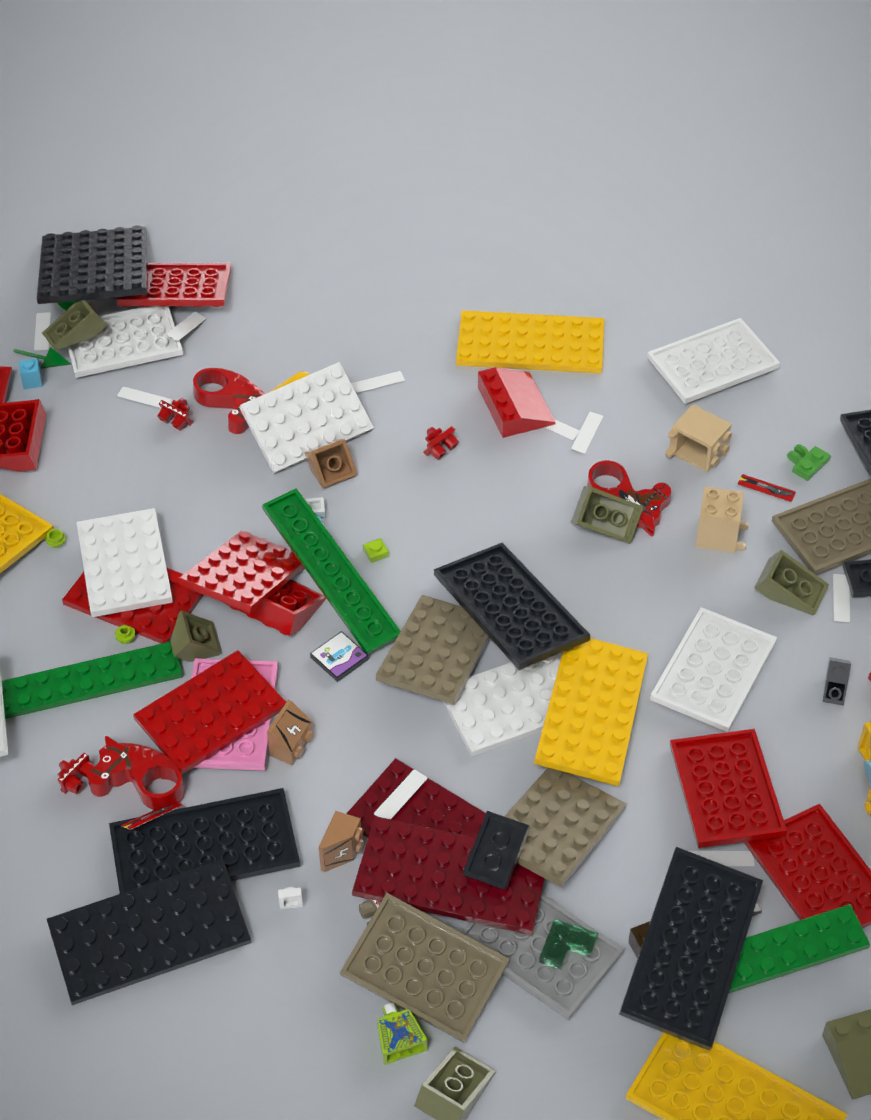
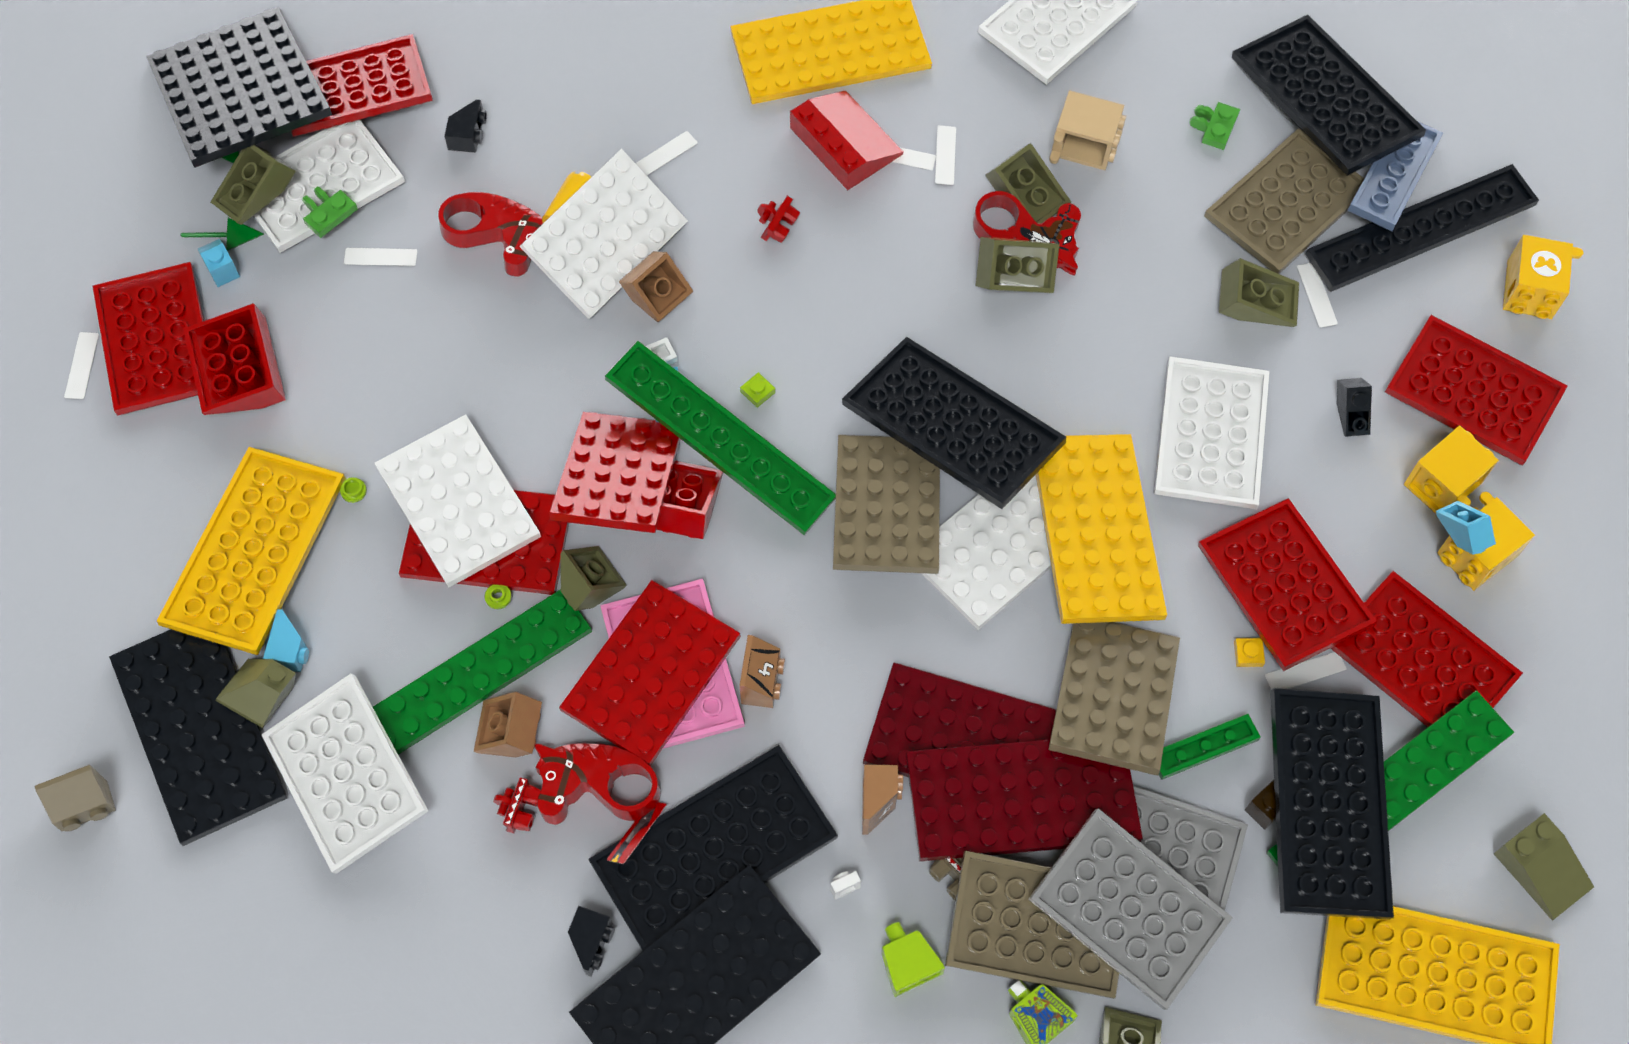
camera: 20 degrees left, 15 degrees up
(42, 323) = (204, 193): white sticker -> none
(85, 875) = (588, 935): none -> black slope
(93, 719) = (508, 725): none -> medium nougat slope
(120, 359) = (329, 213): none -> bright green hinge
(177, 411) = (442, 274): red hips -> none
(186, 326) = (393, 141): white sticker -> none
(240, 330) = (464, 128): none -> black slope
(315, 965) = (909, 960): none -> lime torso
(339, 656) = (771, 547): tile -> none
(401, 795) = (921, 711): white sticker -> none
(496, 850) = (1072, 757): black plate -> none
(499, 975) = (1130, 909): none -> light grey plate
(564, 938) = (1180, 833): clear green plate -> none
(613, 885) = (1208, 745): none -> green plate
(640, 462) = (1030, 182): none -> olive slope
(678, 830) = (1249, 652): none -> yellow plate
(721, 520) = (1153, 236): tan container -> none
(767, 488) = (1181, 172): red sticker -> none

